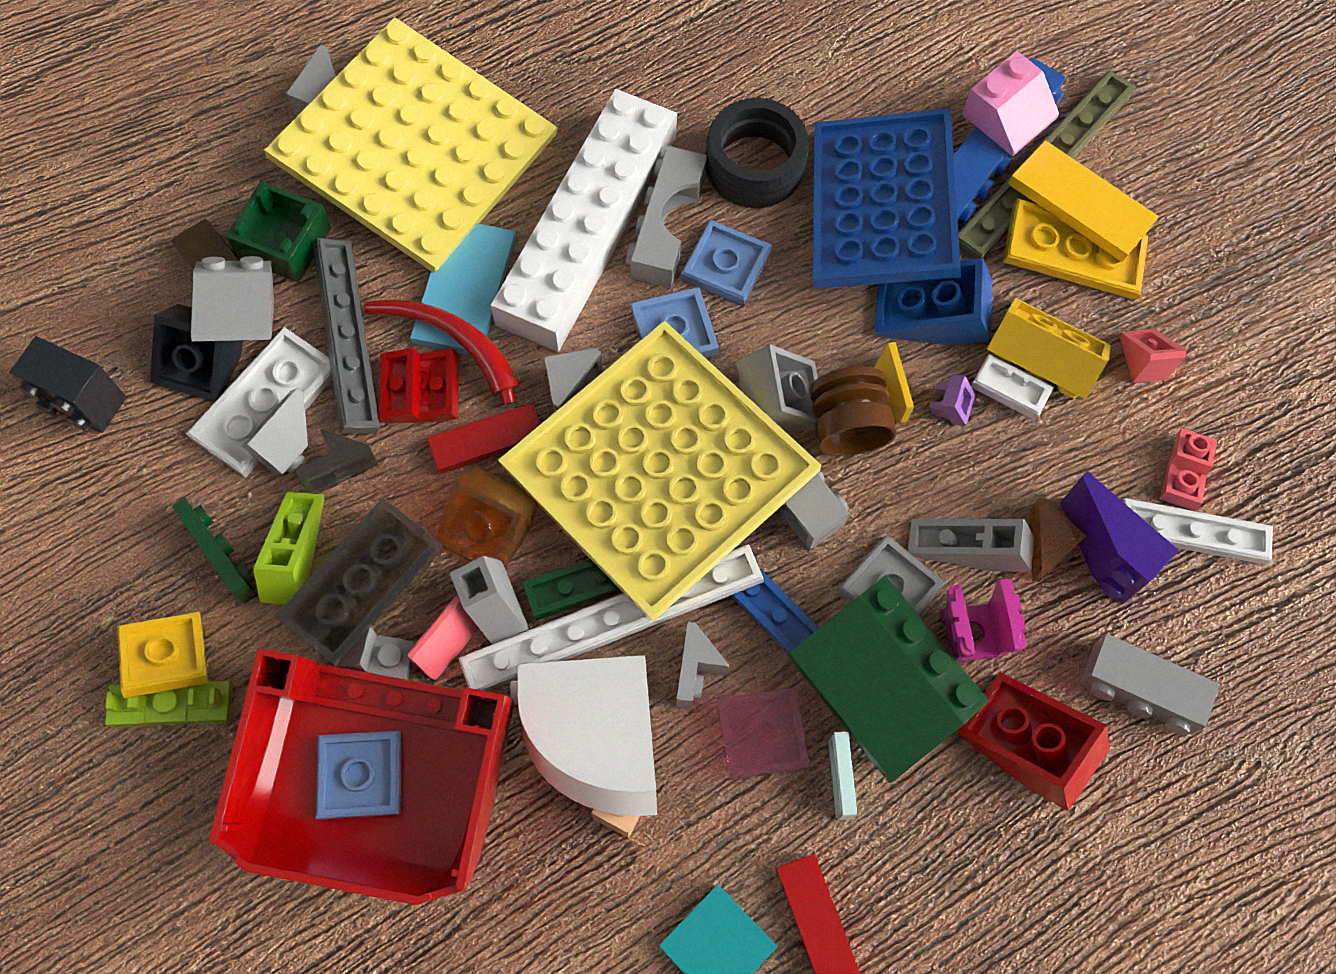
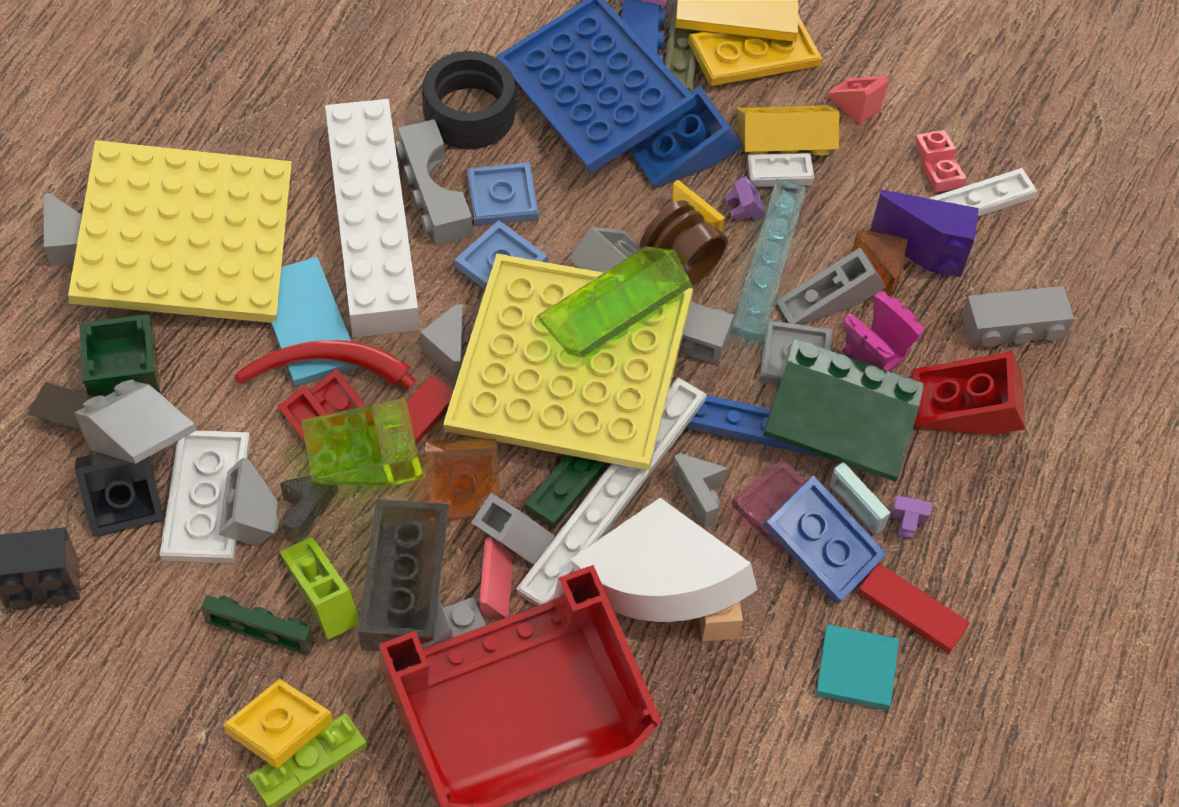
camera: 35 degrees left, 10 degrees down
(346, 337) = (236, 406): dark grey tile -> none
(358, 775) = (505, 714): medium blue tile -> none
(413, 438) = (363, 446): none -> clear neon green slope
(732, 435) = (616, 301): none -> clear neon green slope
(774, 798) = (824, 539): none -> plate
(882, 825) = (910, 514): none -> medium lavender tile
(930, 475) = (768, 261): none -> clear light blue plate

